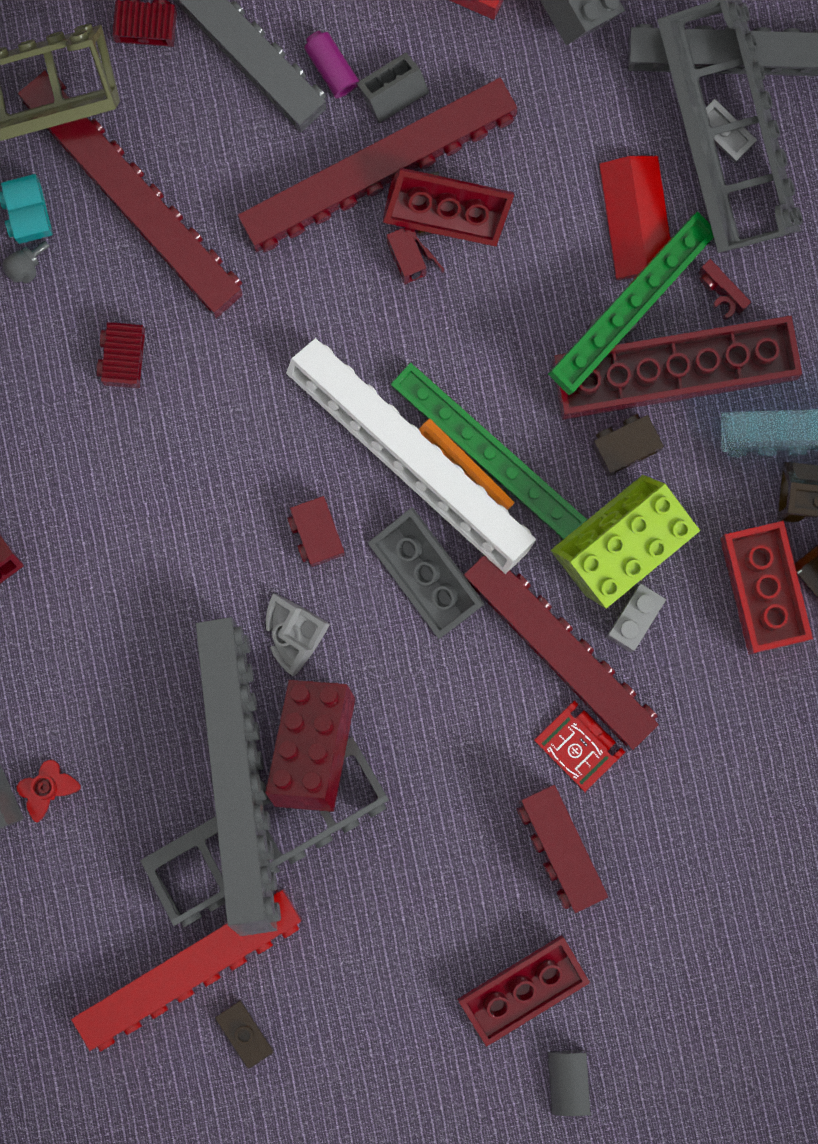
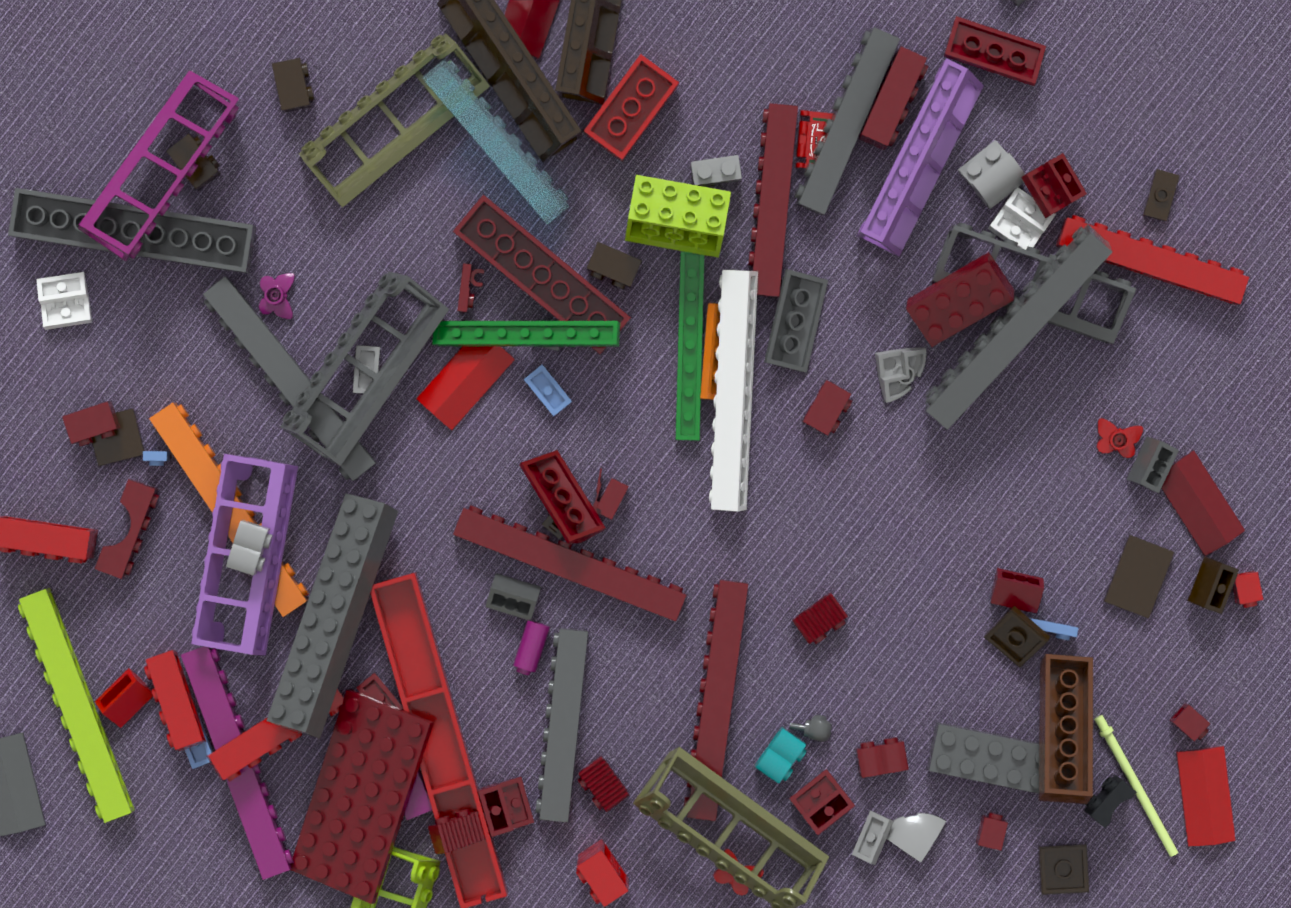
camera: 130 degrees left, 5 degrees up
(336, 875) = (1020, 220): none -> white slope
(343, 935) = (1054, 185): none -> dark red brick
(405, 885) = (992, 174): none -> light grey brick
(481, 827) = (921, 158): none -> medium lavender window
(560, 283) = (547, 390): none -> medium blue plate
(577, 787) = (847, 121): none -> dark grey brick

